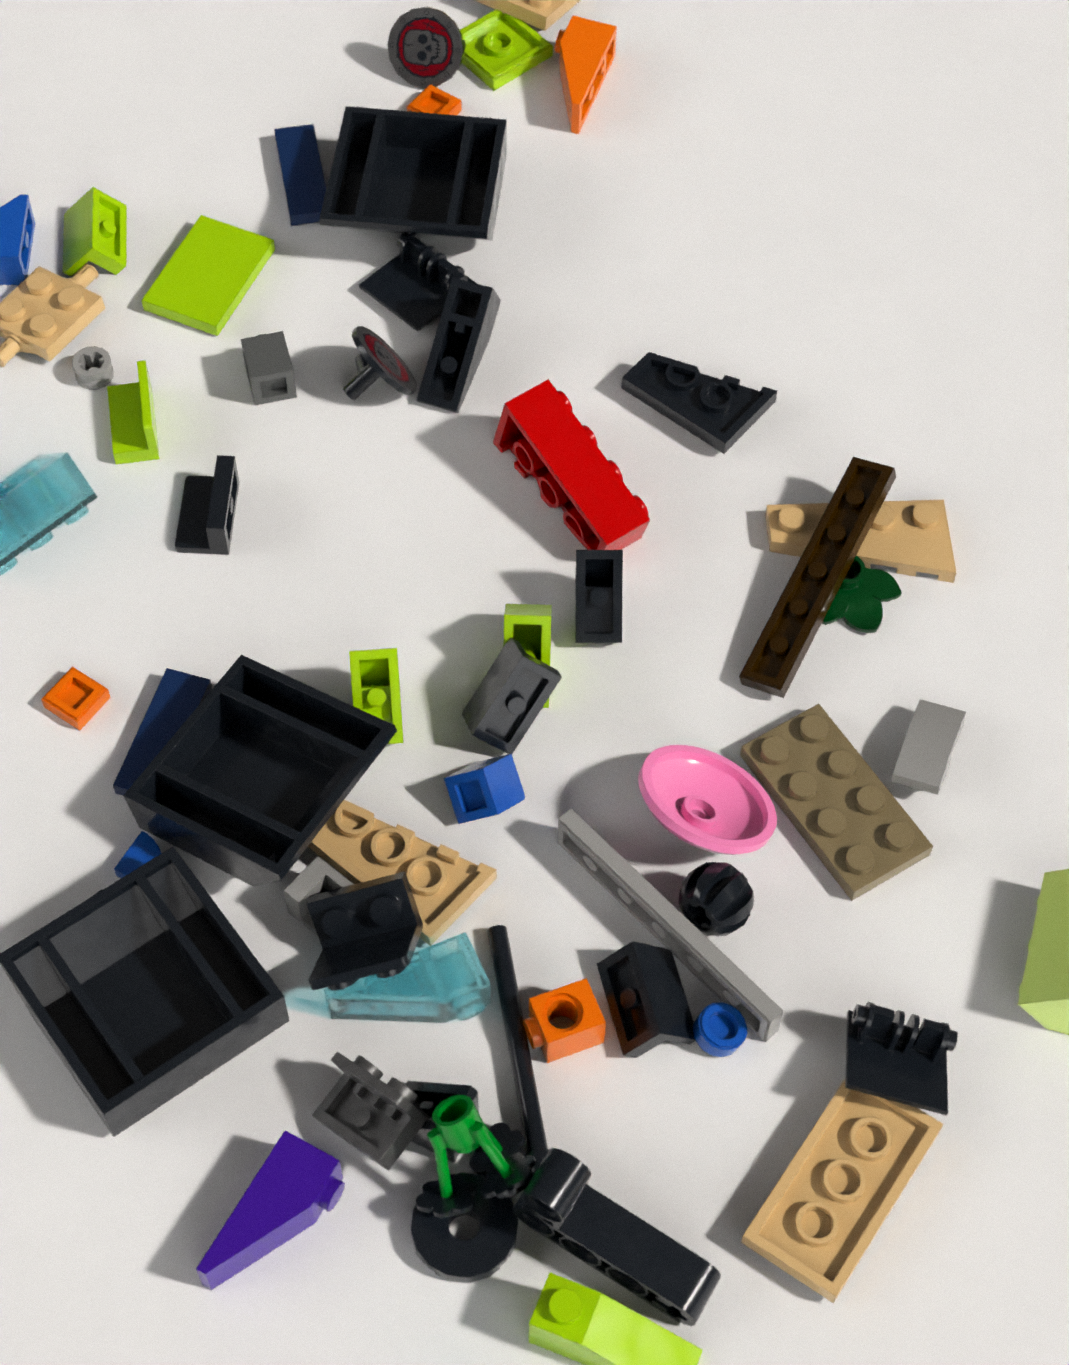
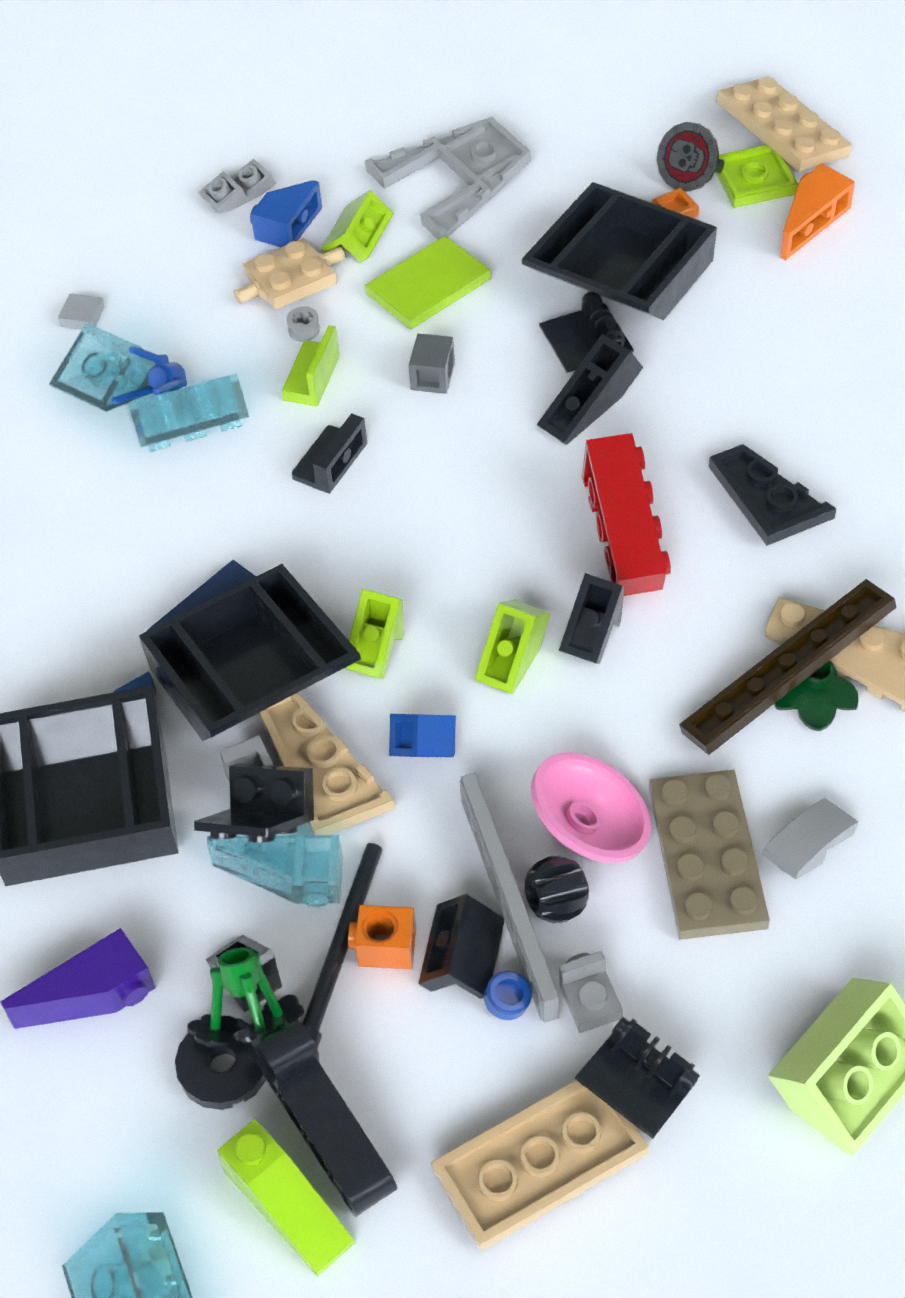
camera: 30 degrees right, 5 degrees down
(76, 698) = (157, 559): orange tile -> none
(182, 105) = (479, 153): none -> light grey wing
(301, 173) = (543, 213): dark blue tile -> none
(370, 1113) = (192, 941): flat silver bracket -> none
(377, 361) = (518, 385): shield -> none
(510, 697) = (476, 673): black panel -> none
(799, 991) = (589, 991): none -> light grey bracket

